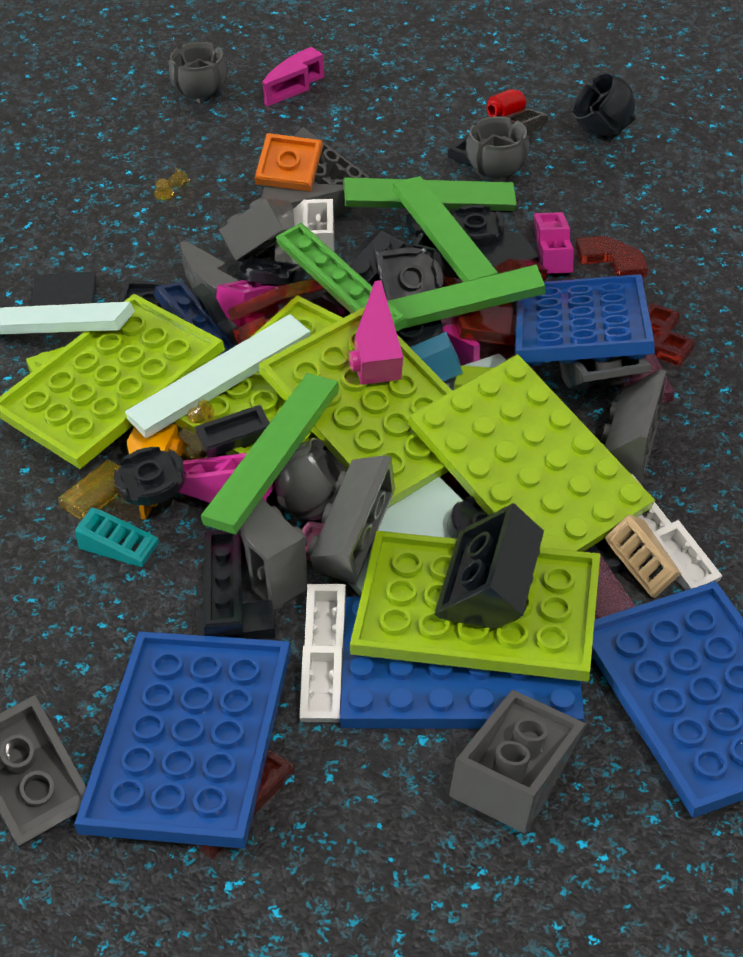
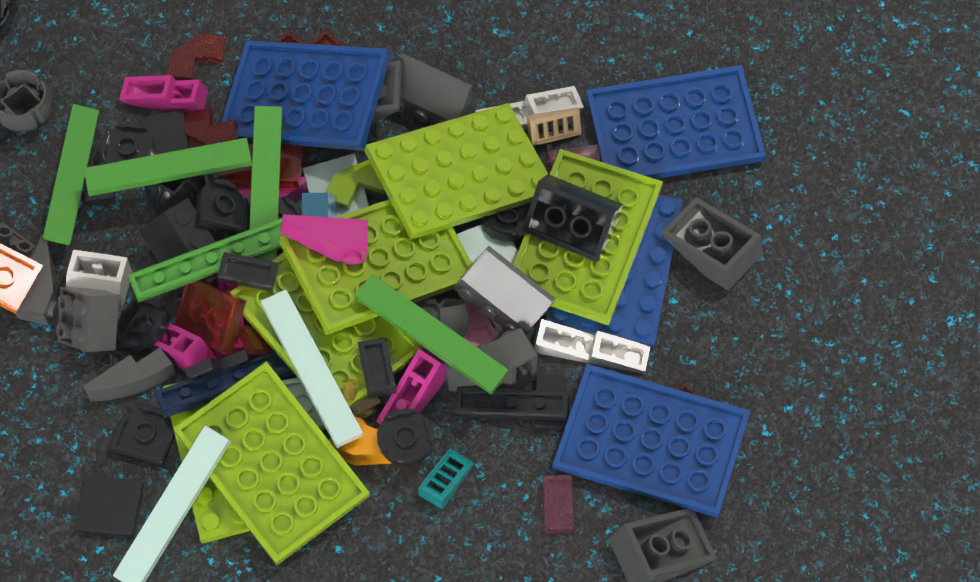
camera: 80 degrees left, 20 degrees up
(90, 655) = (558, 504): none -> clear pink tile
(91, 491) = (384, 491): clear yellow tile -> none
(325, 300) = (248, 271): none -> black tile

